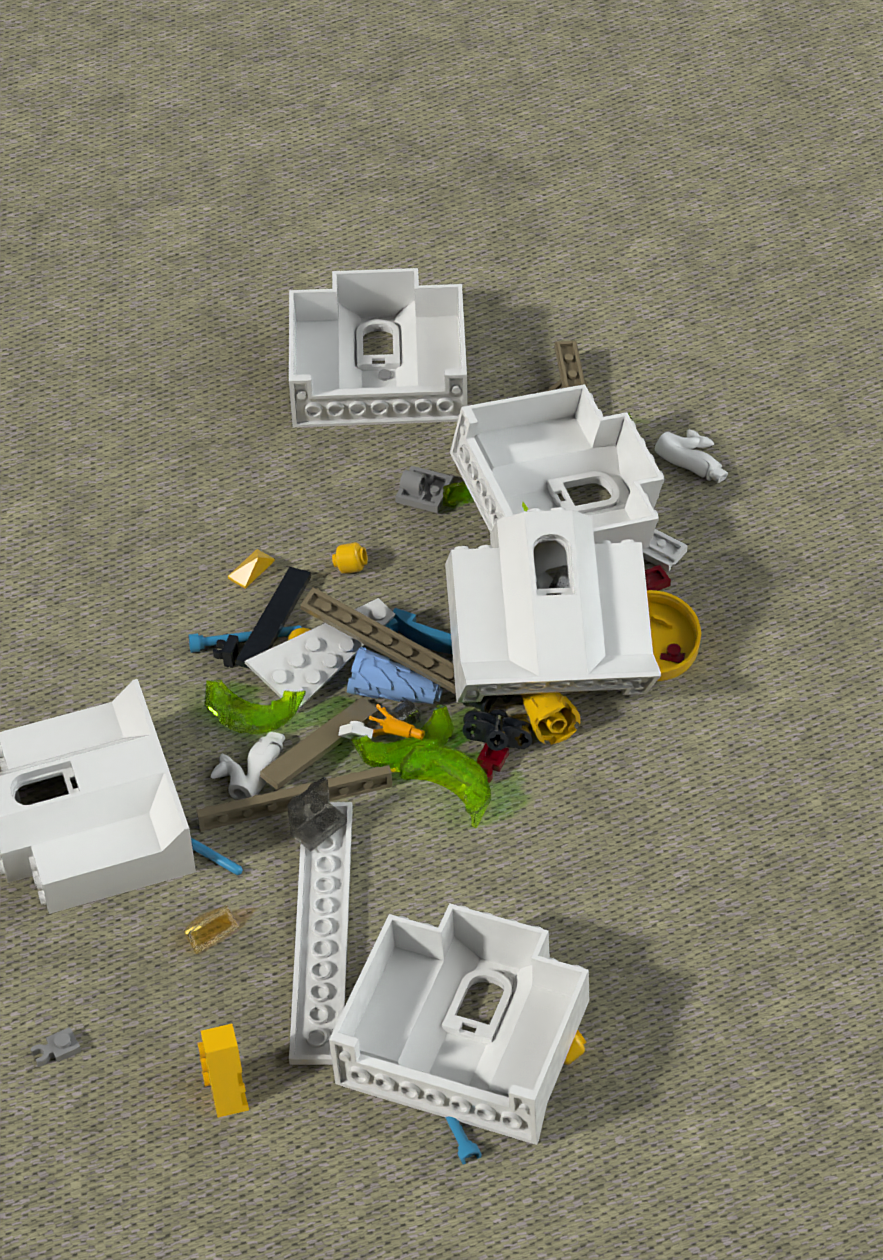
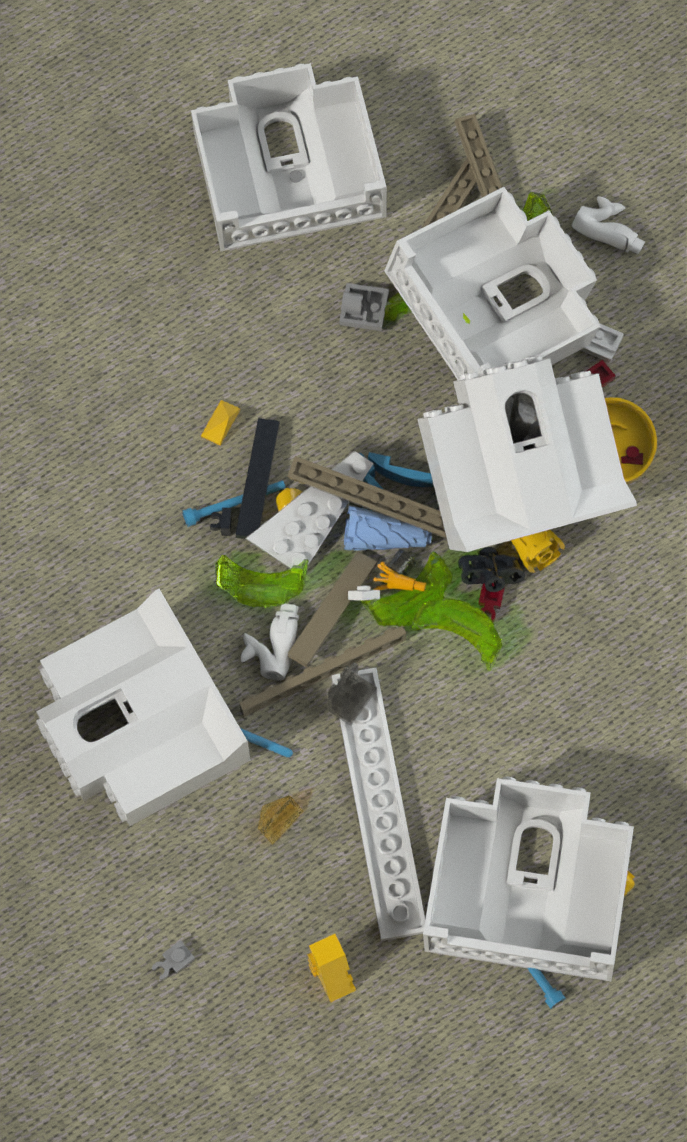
camera: 10 degrees left, 20 degrees up
(350, 558) = (312, 398): yellow head -> none

